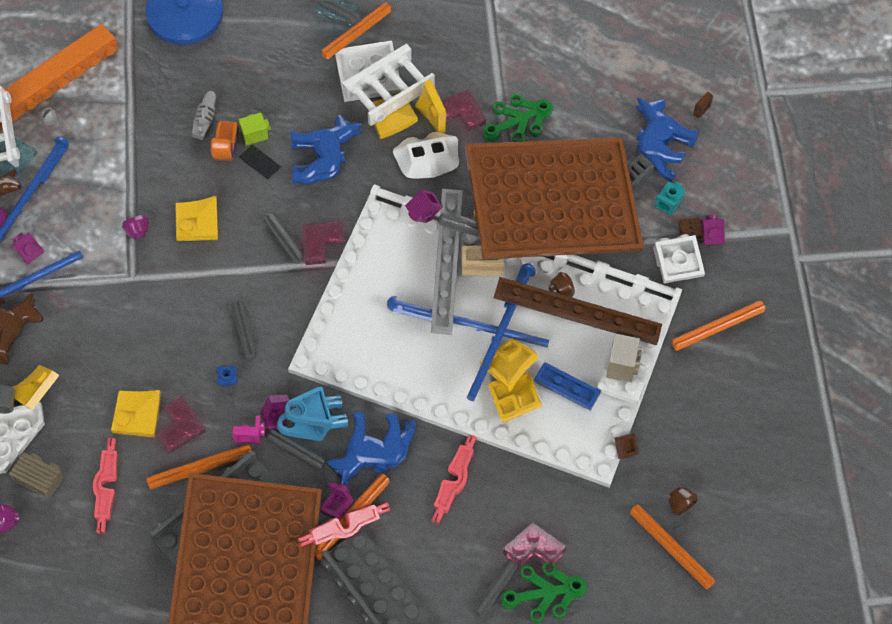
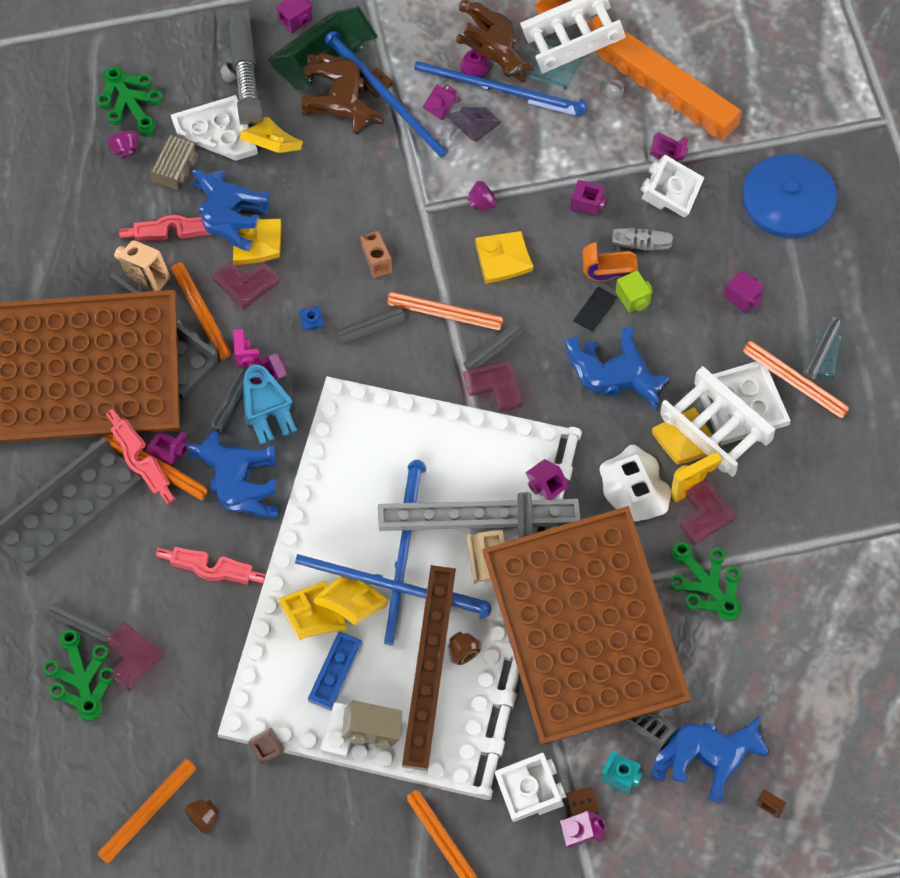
camera: 85 degrees right, 0 degrees up
(54, 226) = (474, 121): none -> clear purple slope
(97, 436) = (222, 207): none -> blue animal
(122, 83) = (665, 145): none -> magenta bracket
(144, 509) = (143, 265): none -> light nougat torso
(155, 148) = (588, 198): none -> magenta brick
(158, 87) = (671, 186): none -> white plate
(172, 316) = (376, 254): none -> nougat leg
(240, 271) = (445, 310): none -> orange axle
(269, 52) = (744, 291): none -> magenta brick

